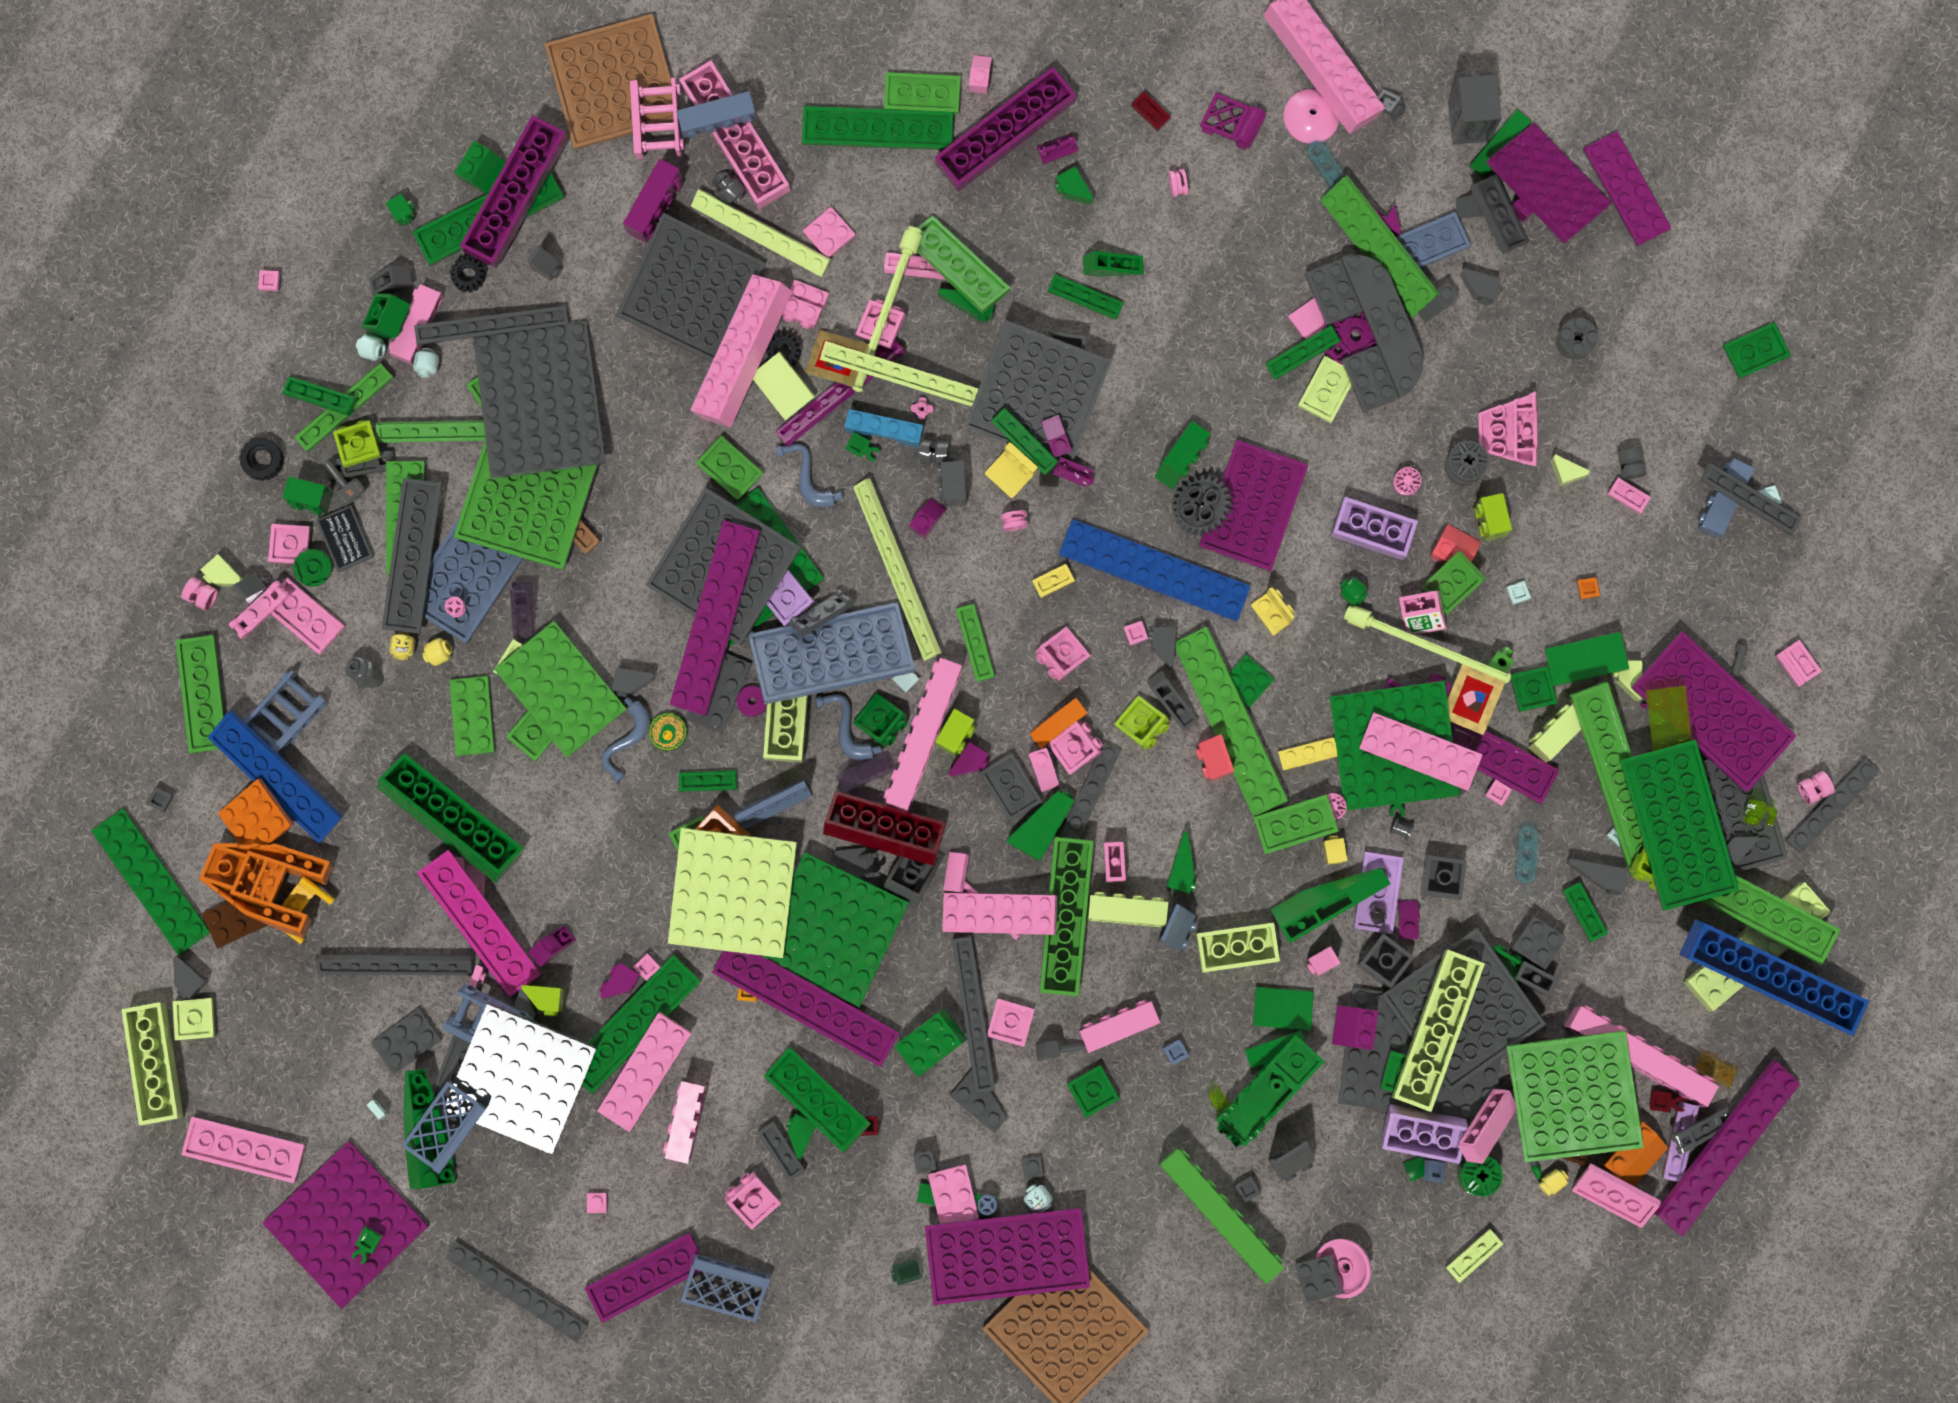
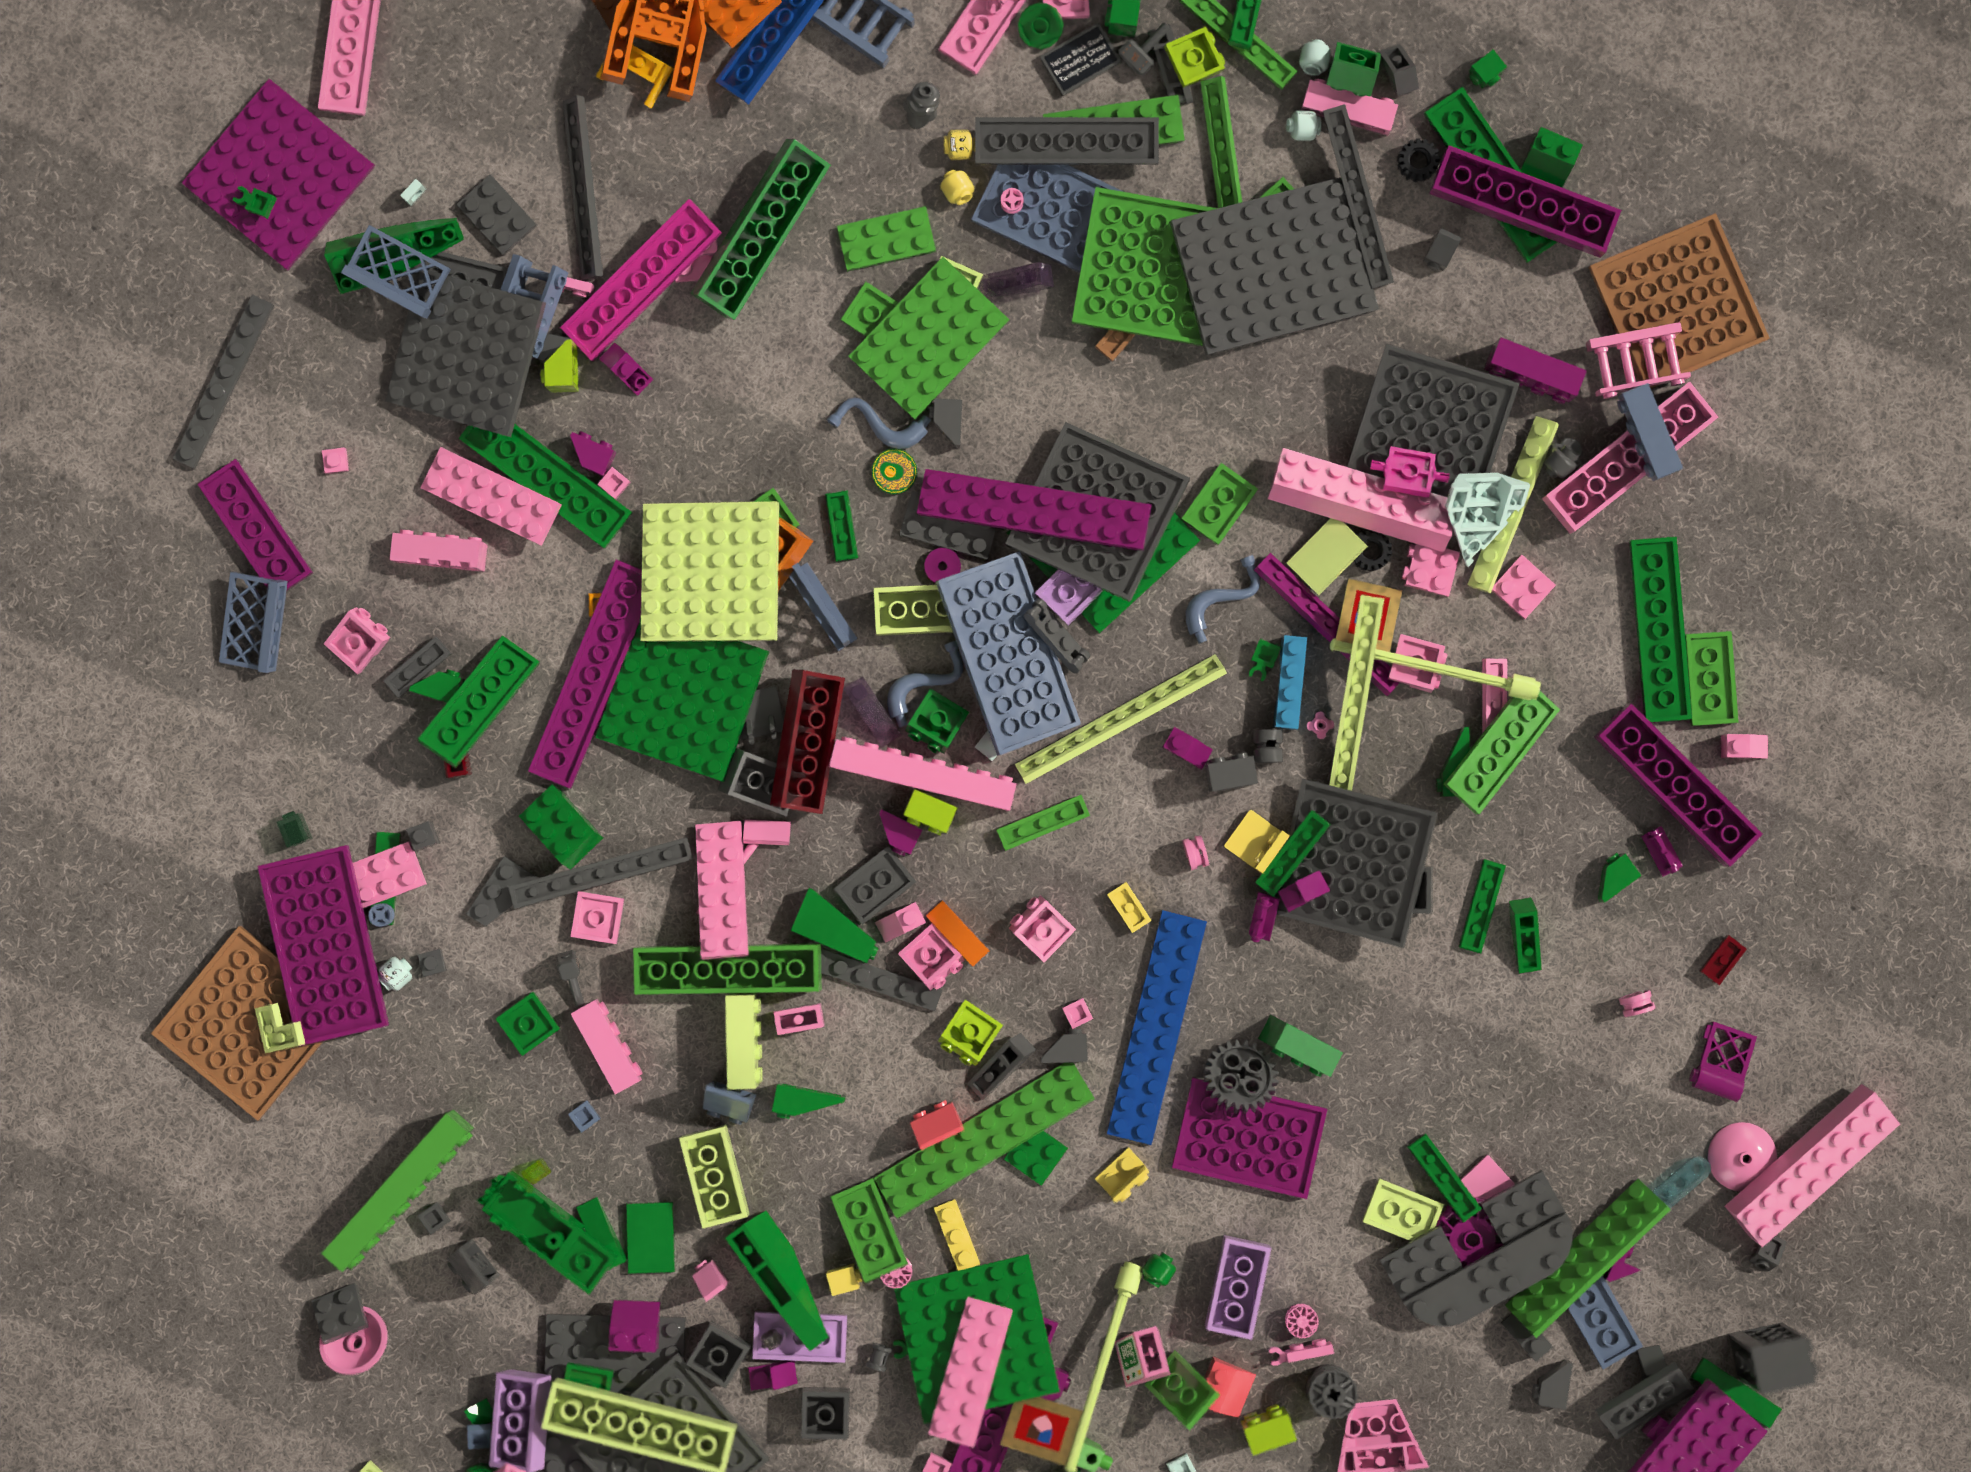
camera: 80 degrees right, 5 degrees up
(723, 309) = (1409, 471): none -> dark pink plate
(760, 256) = (1480, 507): none -> light aqua wedge
(1075, 1307) = (273, 1032): none -> yellowish green plate
(1432, 485) = (1299, 1352): none -> bright pink plate

